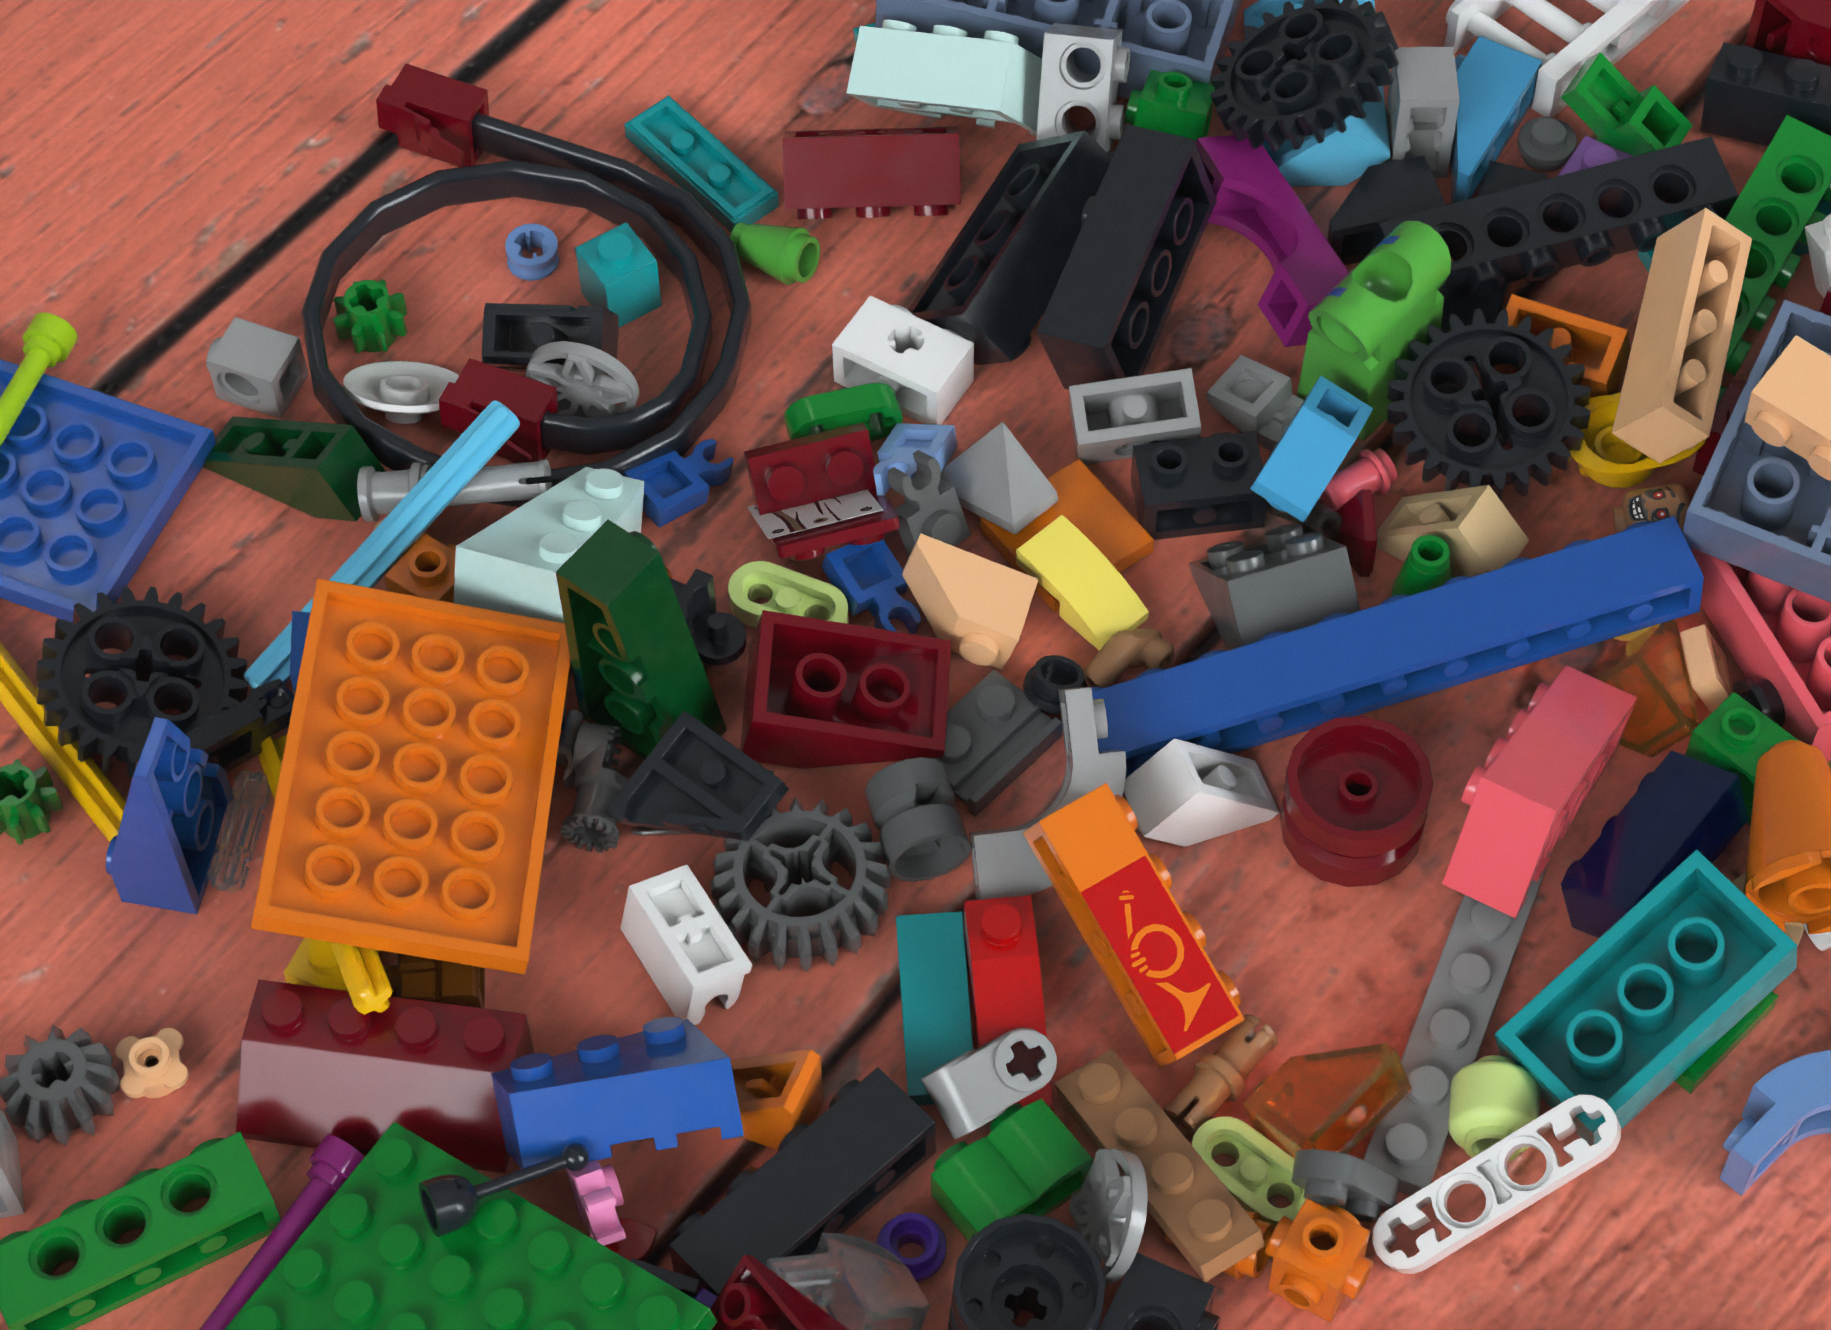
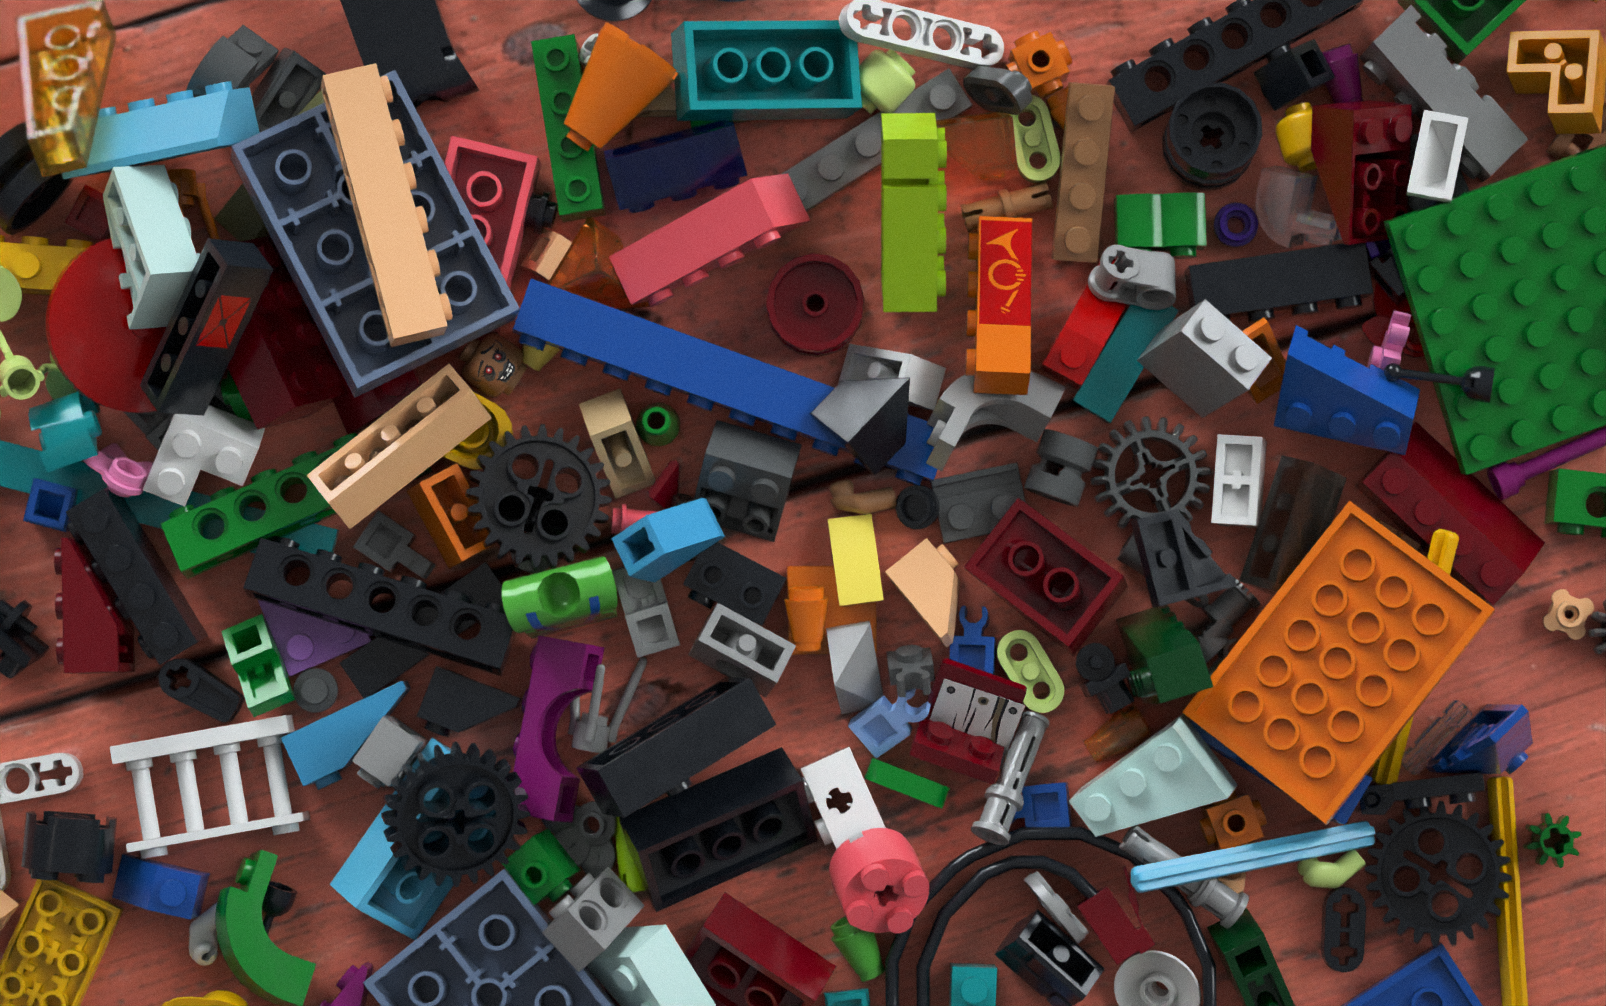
camera: 145 degrees left, 30 degrees up
(235, 571) = (1354, 929): none -> black beam
(272, 621) = (1329, 874): none -> yellowish green arm
(584, 932) = (1292, 521): none -> clear smoke brick
(721, 451) = (1005, 796): none -> light grey pin
(799, 291) = (879, 881): none -> coral brick
(834, 1014) = (1204, 358): none -> light grey brick
(1092, 491) = (806, 614): none -> orange cone
(1112, 1210) = (1132, 157): light grey wheel -> none
(1194, 681) = (867, 418): none -> black slope
(1229, 271) = (592, 730): none -> light grey plant
(1336, 936) = (910, 219): none -> lime piece
(1597, 295) = (389, 544): none -> dark grey plate
(1663, 64) = (206, 692): none -> black piece

